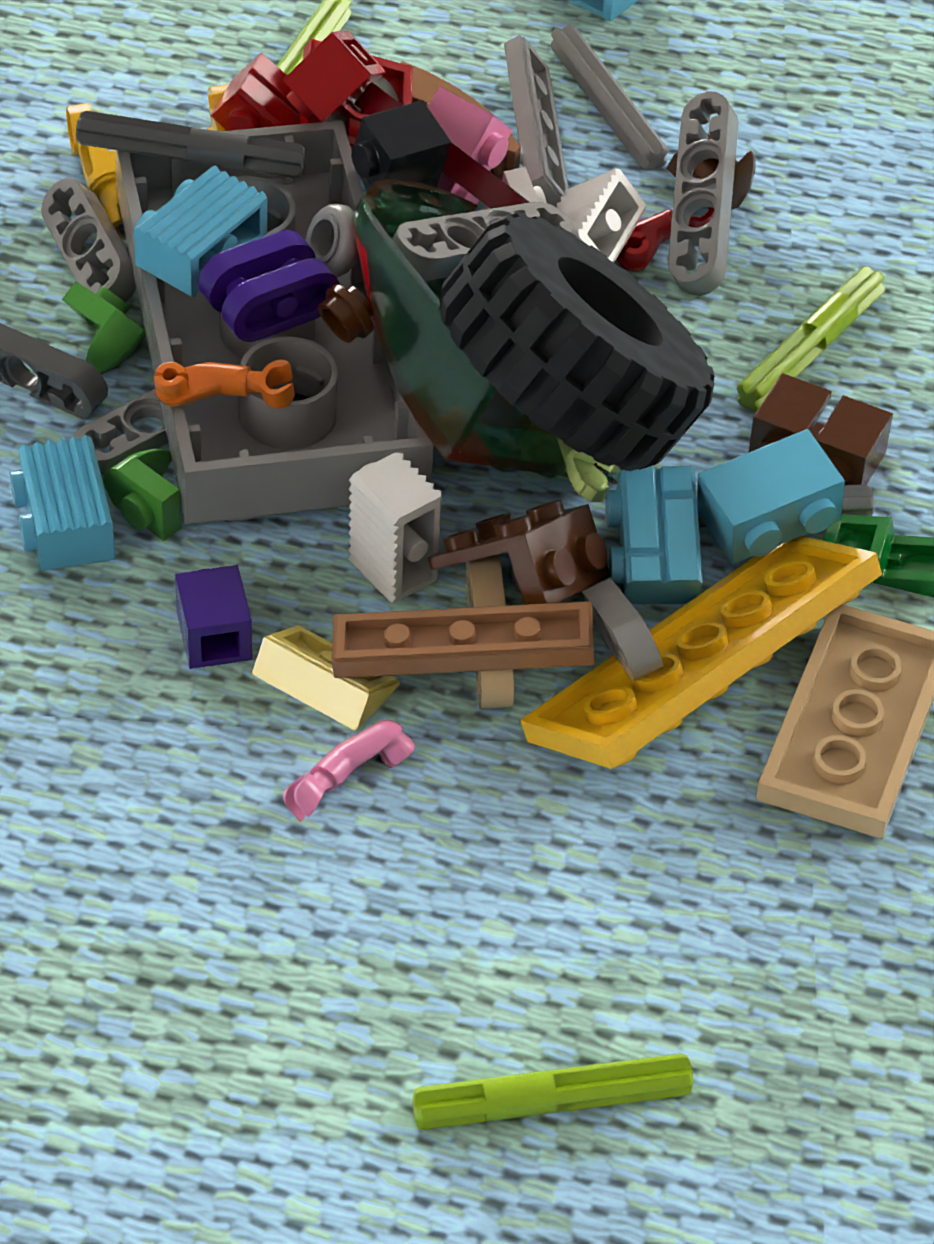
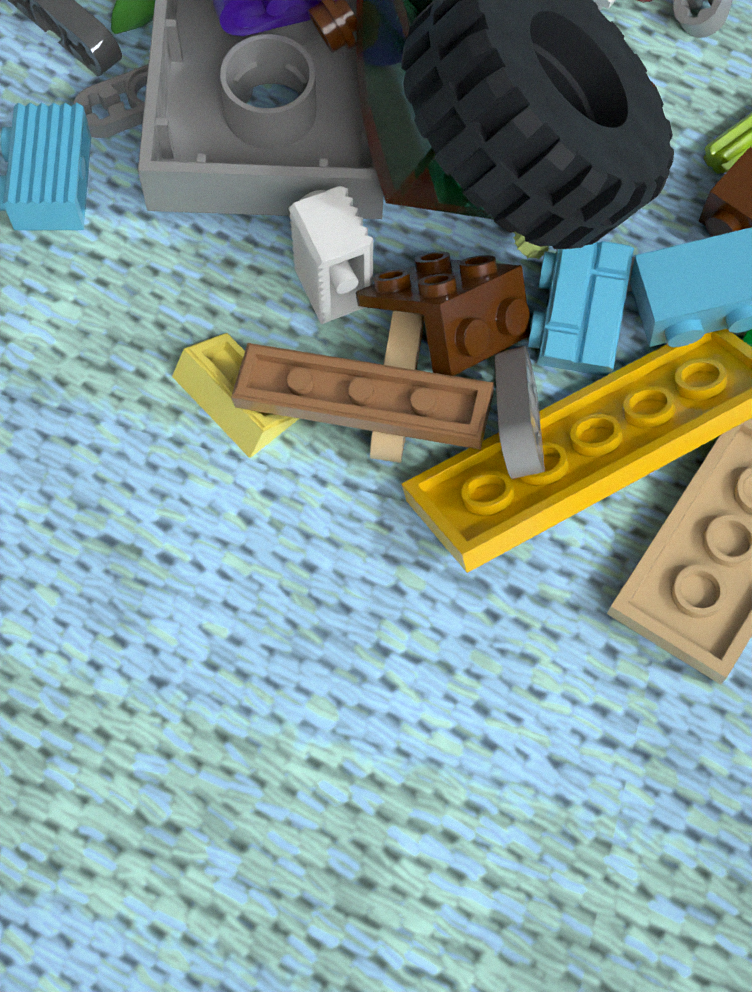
camera: 15 degrees right, 20 degrees up
(143, 493) = (118, 173): bright green plate -> none
(181, 386) = (182, 73): orange arm -> none
(213, 616) = (145, 314): dark purple brick -> none
(331, 771) = (209, 505): bright pink arm -> none
(552, 1091) = (321, 916): lime axle -> none

